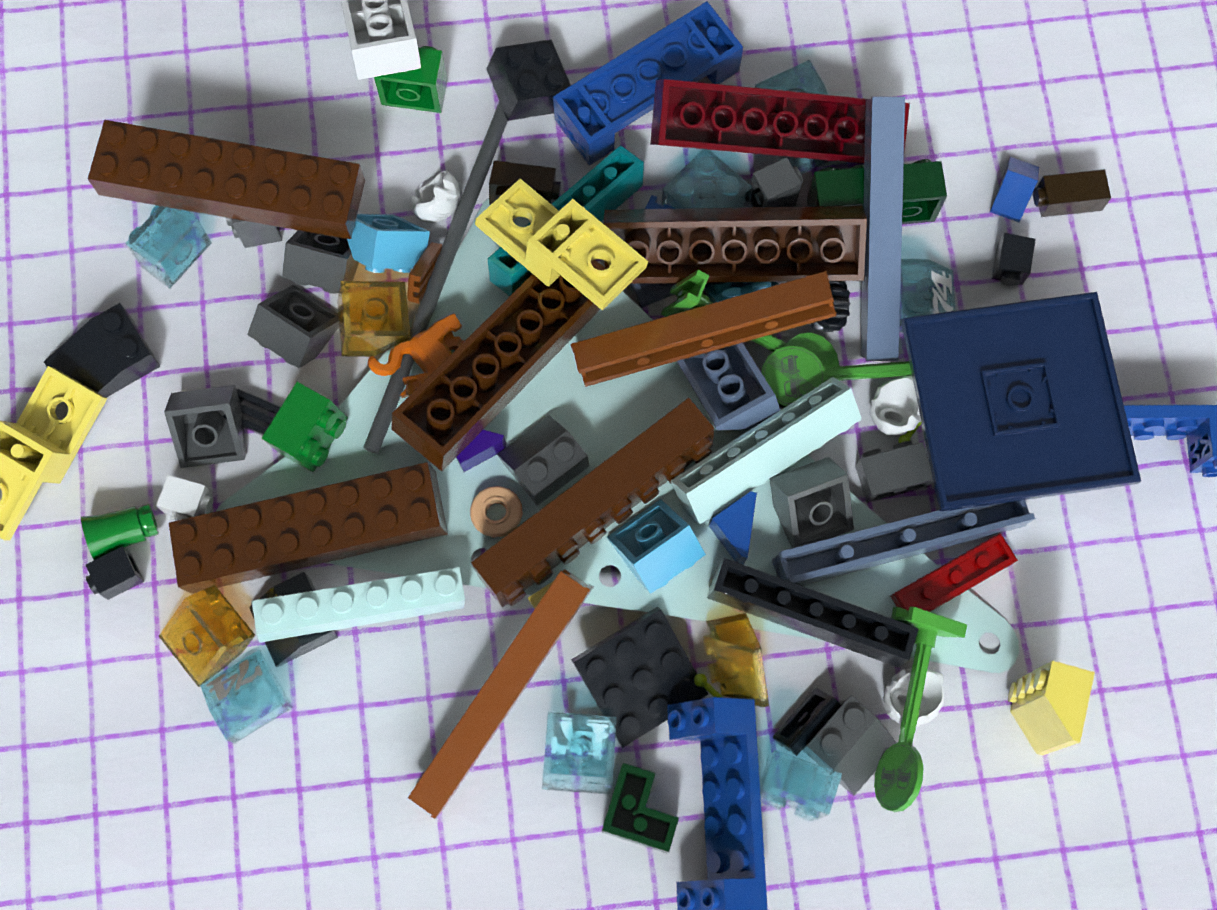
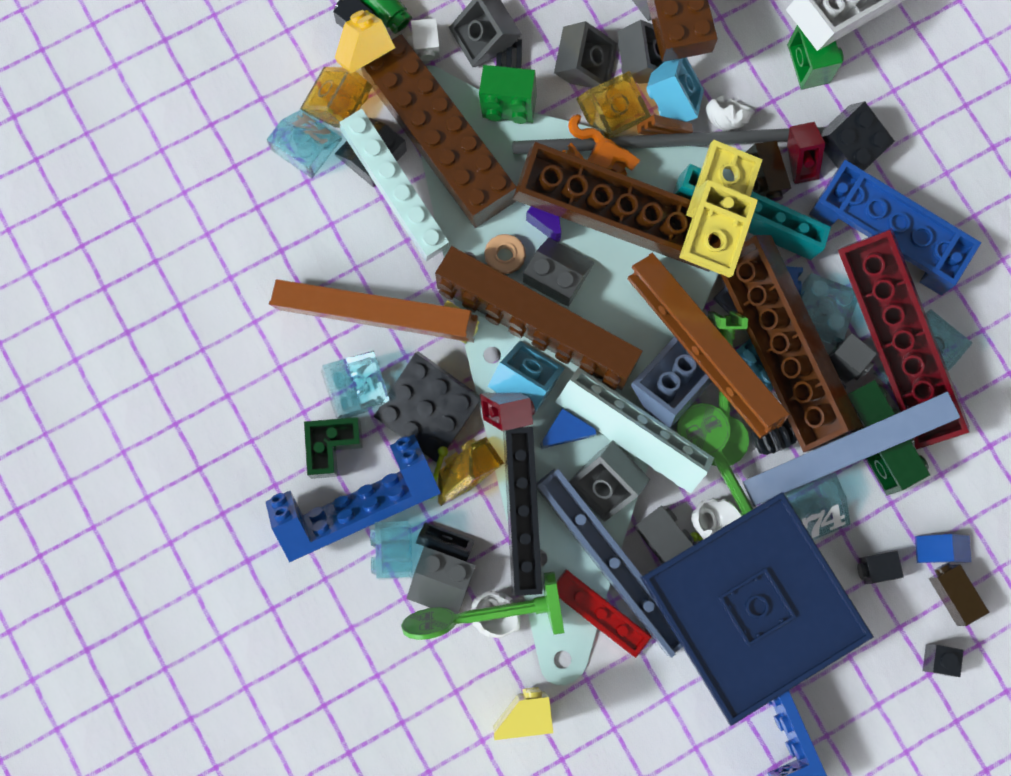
camera: 65 degrees right, 5 degrees up
(159, 572) = (362, 41): none -> yellow slope
(520, 136) = (805, 152): none -> dark red slope
(690, 581) = (507, 410): none -> dark red slope
(1136, 239) = (943, 660): none -> black brick

